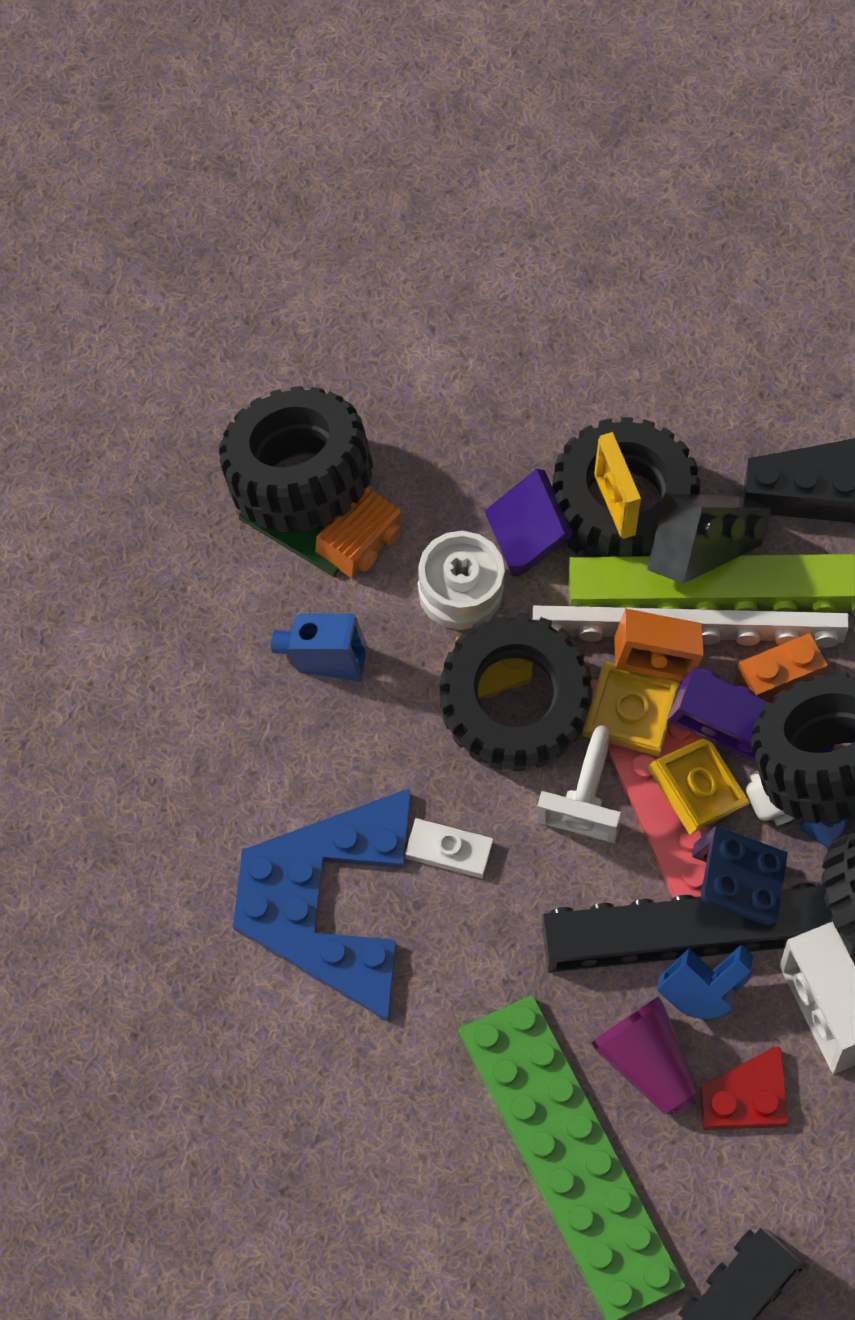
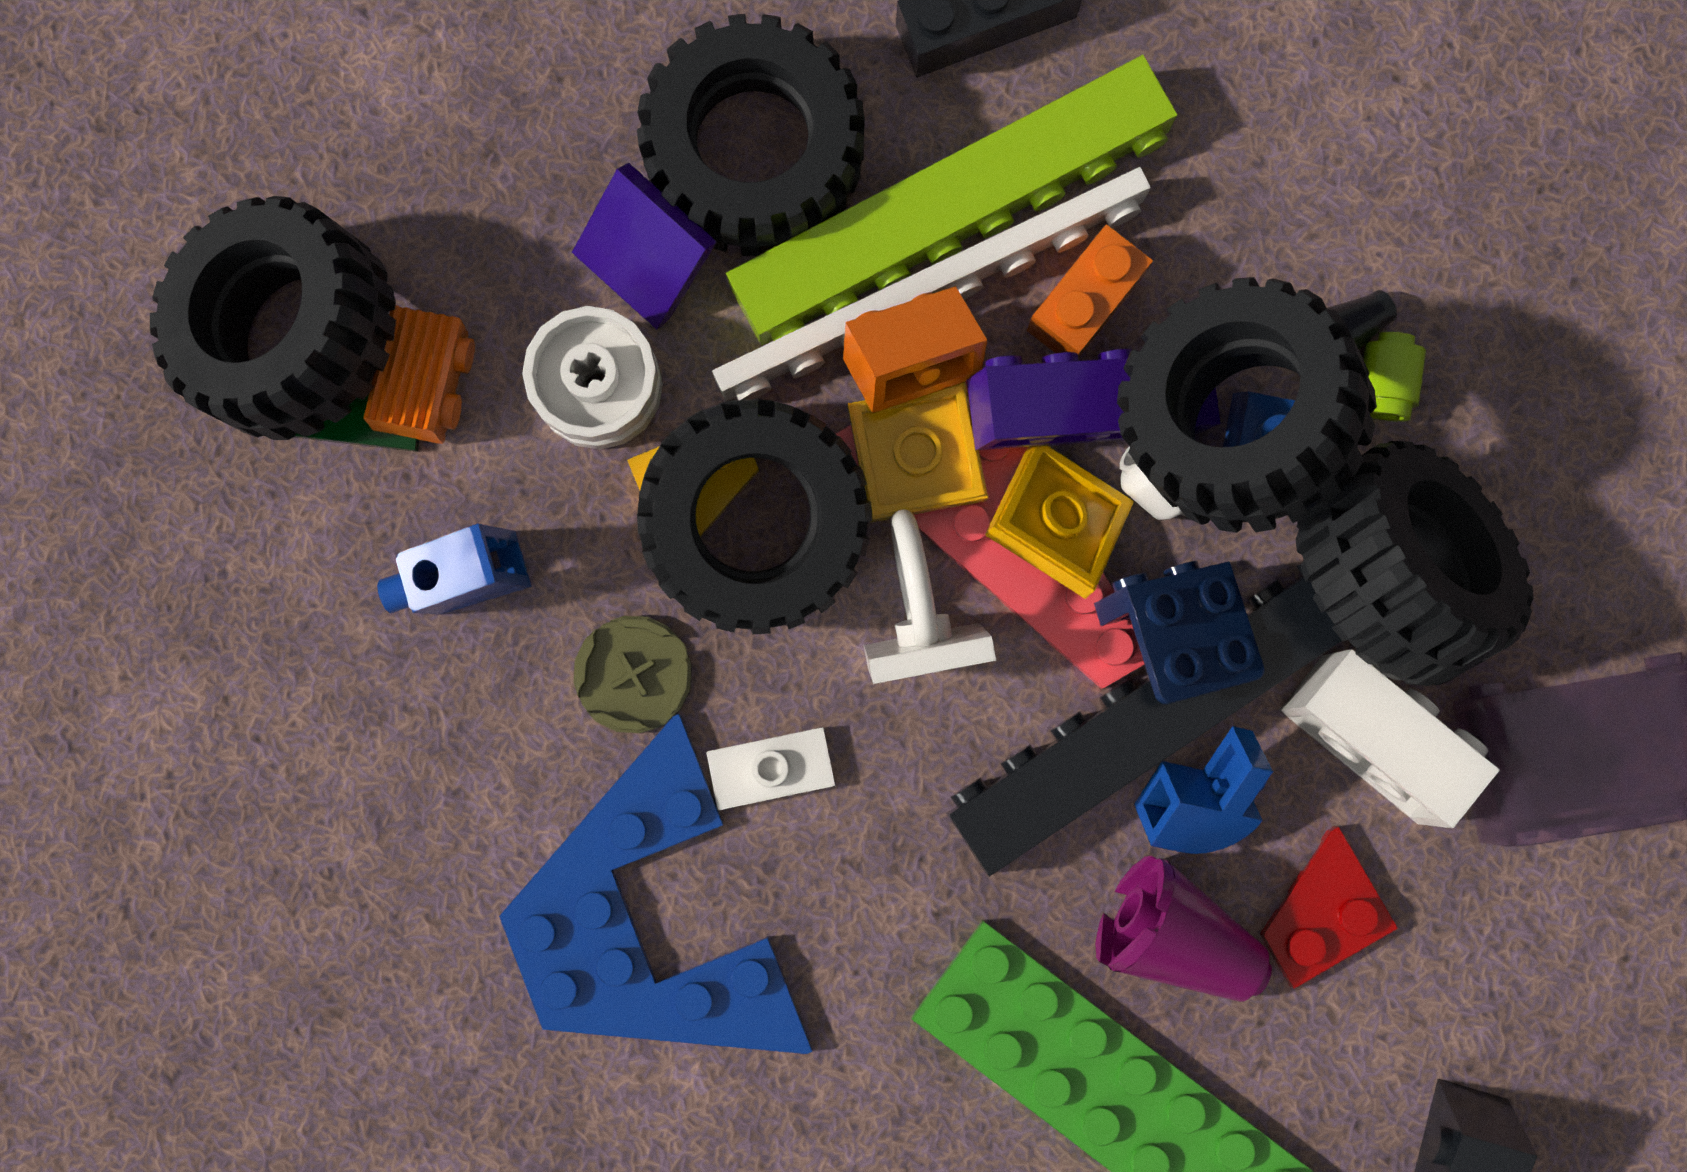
camera: 25 degrees left, 20 degrees up
(394, 756) = (633, 674): none -> olive tile
(617, 485) = (749, 149): yellow tile -> none
(704, 533) = (896, 150): black wedge -> none

